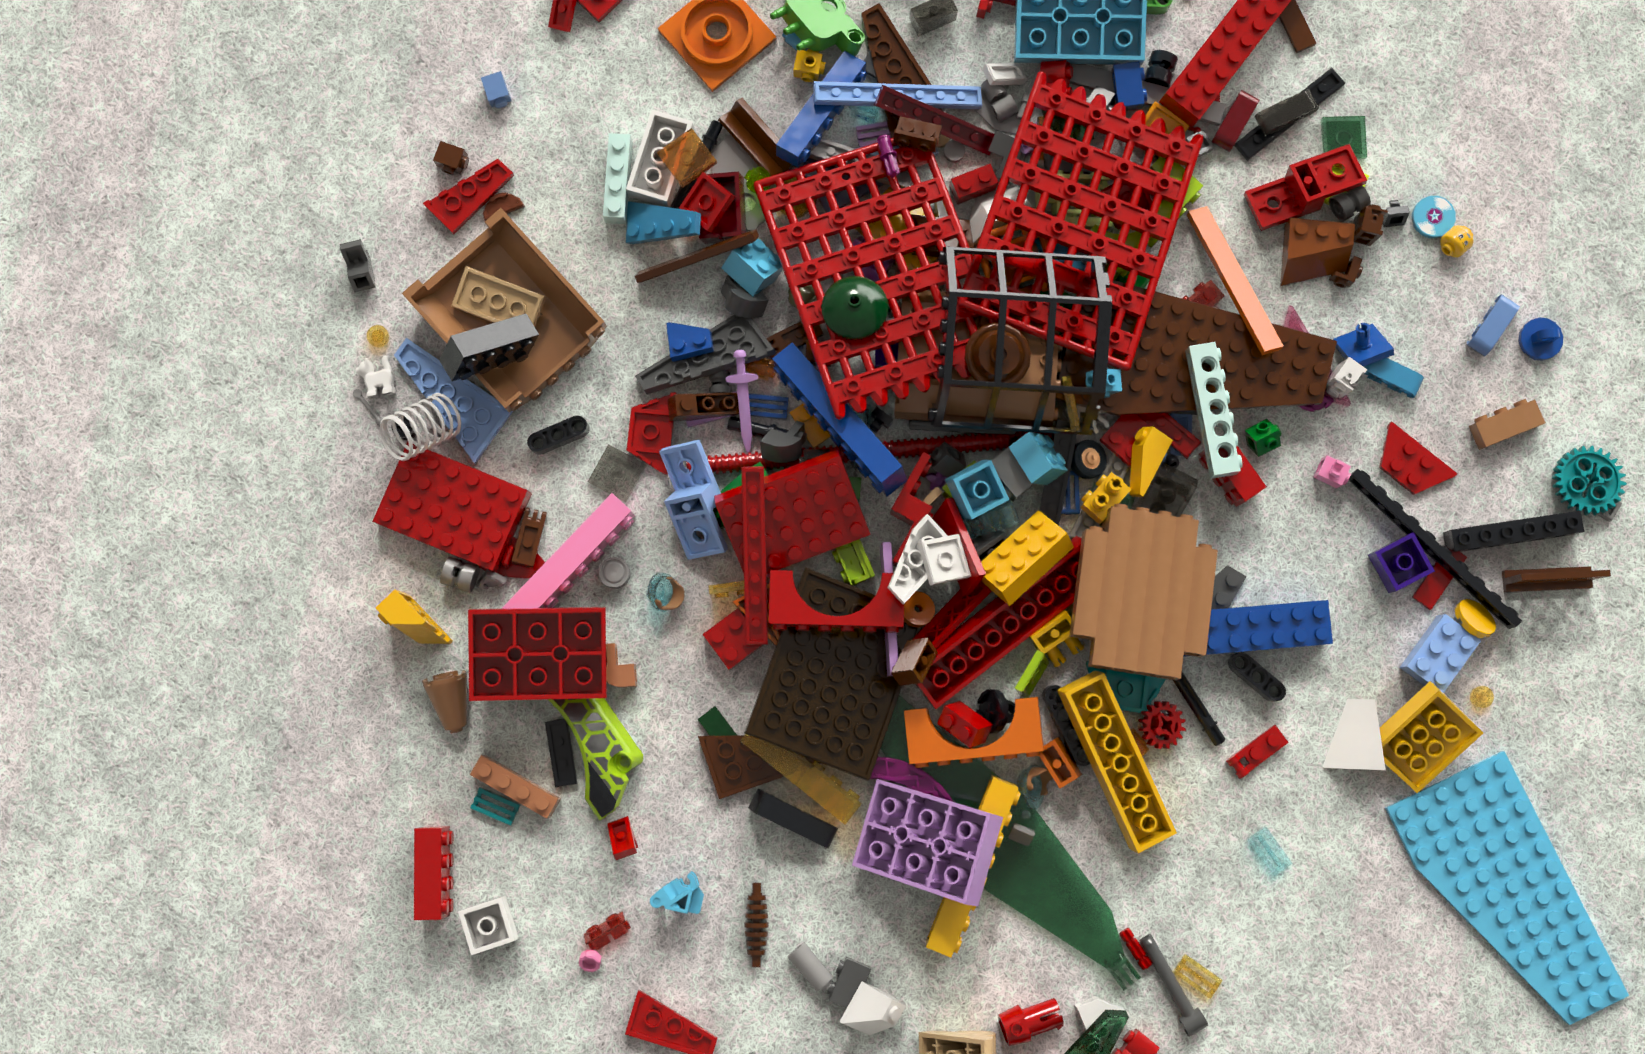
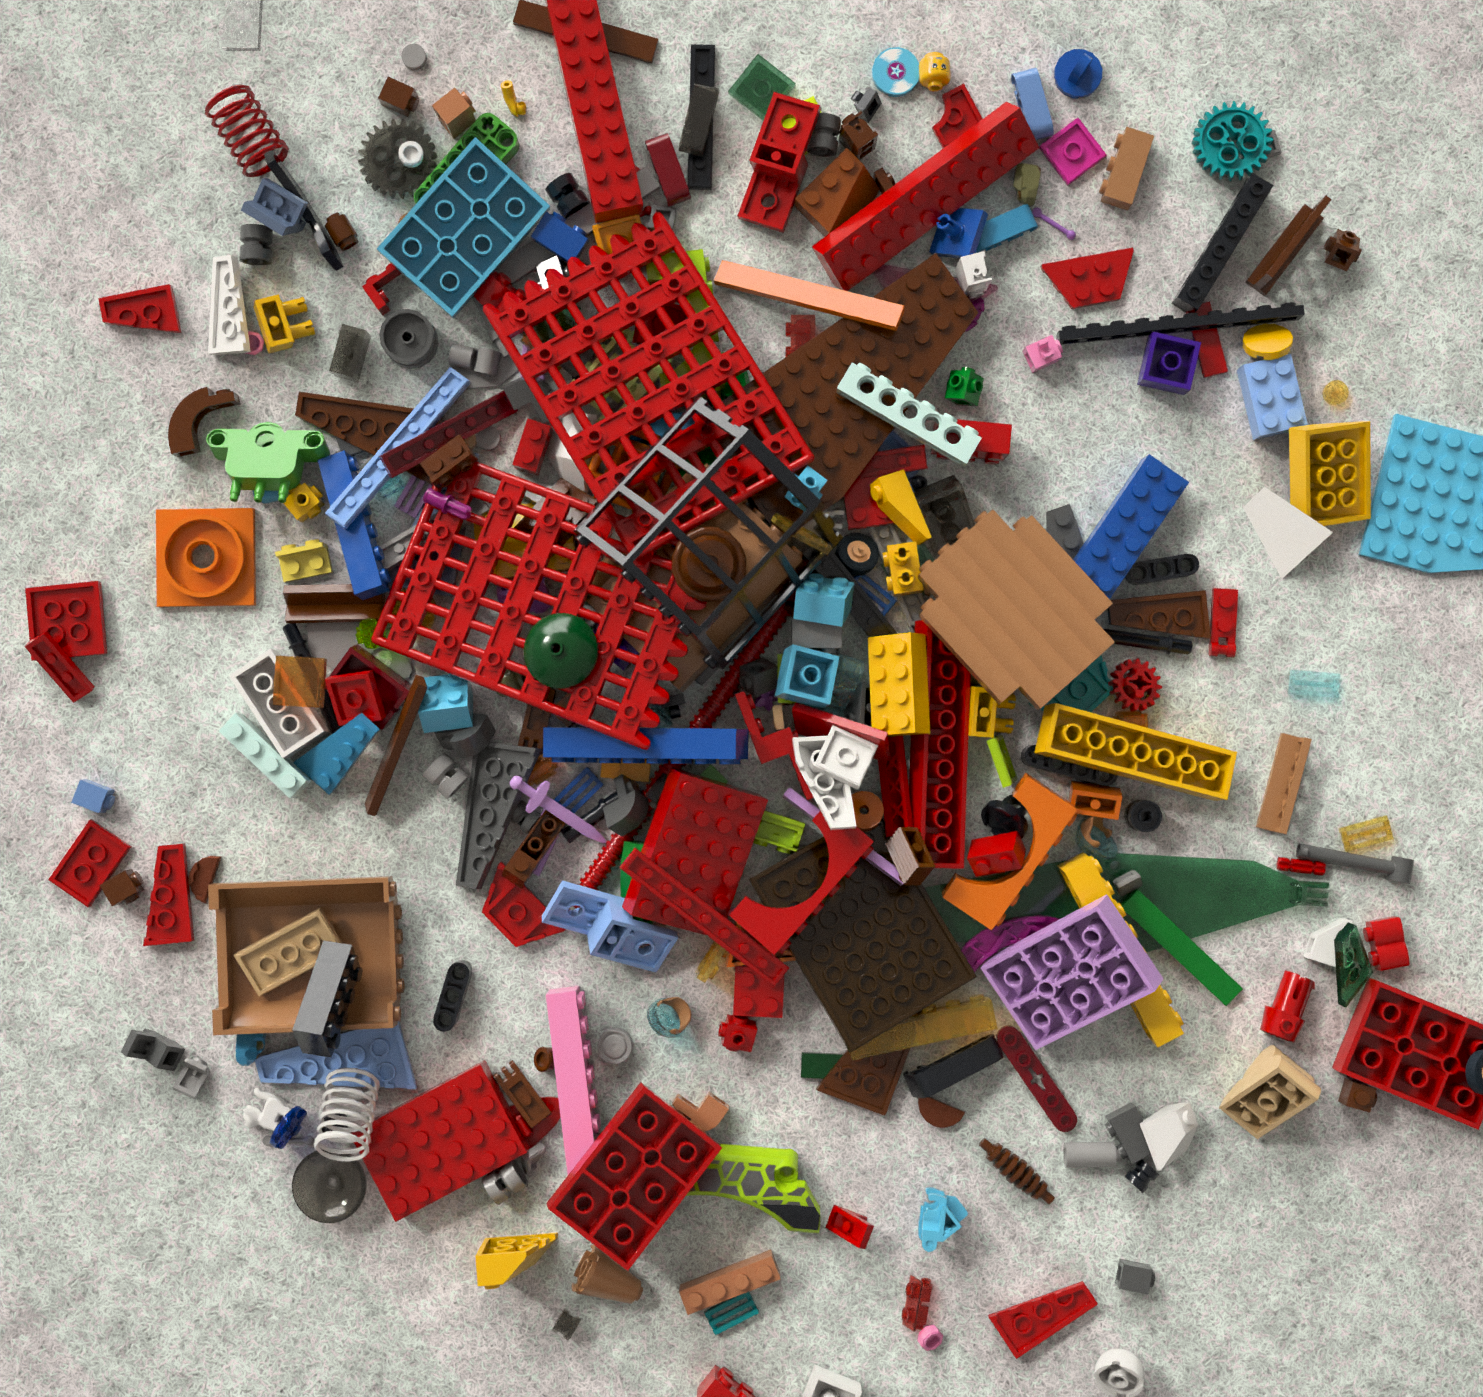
camera: 50 degrees left, 5 degrees up
(346, 456) = (320, 1199): none -> clear smoke dish
(359, 307) = (192, 1077): none -> light grey bracket
(378, 336) = (231, 1081): clear yellow tile -> none
(378, 397) = (288, 1127): none -> clear blue wheel
(394, 698) = (566, 1324): none -> clear smoke wheel
(413, 326) = (248, 1047): none -> dark azure rock
(449, 122) = (89, 863): none -> red tile
(561, 752) = (733, 1218): black tile -> none
(564, 531) = (544, 1059): none -> reddish brown tile
(617, 473) = (529, 971): clear smoke tile -> none
(688, 341) = (464, 814): blue wing -> none
(692, 649) = (738, 1033): none -> red brick
(703, 308) = (445, 775): none -> light grey wheel
(751, 835) = (939, 1113): none -> copper tile
(769, 98) = (304, 561): none -> light yellow bracket
(825, 906) = (1022, 1059): none -> dark red piece
(826, 1016) = (1141, 1175): none -> black wheel
(975, 43) = (410, 353): none -> dark grey wheel
(1004, 74) = (457, 336): white tile -> none
(1008, 910) = (1181, 947): none -> green tile
(1077, 805) = (1143, 815): none -> black wheel
(1182, 886) = (1283, 783): none -> medium nougat fence
(1230, 707) = (1167, 613): none -> reddish brown wing
(1360, 300) = (924, 195): none -> red brick
(1423, 390) = (1038, 213): none -> medium lavender hinge
(1437, 364) = (1026, 182): none -> olive rock
(1439, 285) = (958, 115): none -> red tile
(1485, 379) = (1072, 151): none -> dark pink tile
(1583, 617) = (1342, 249): none -> reddish brown brick

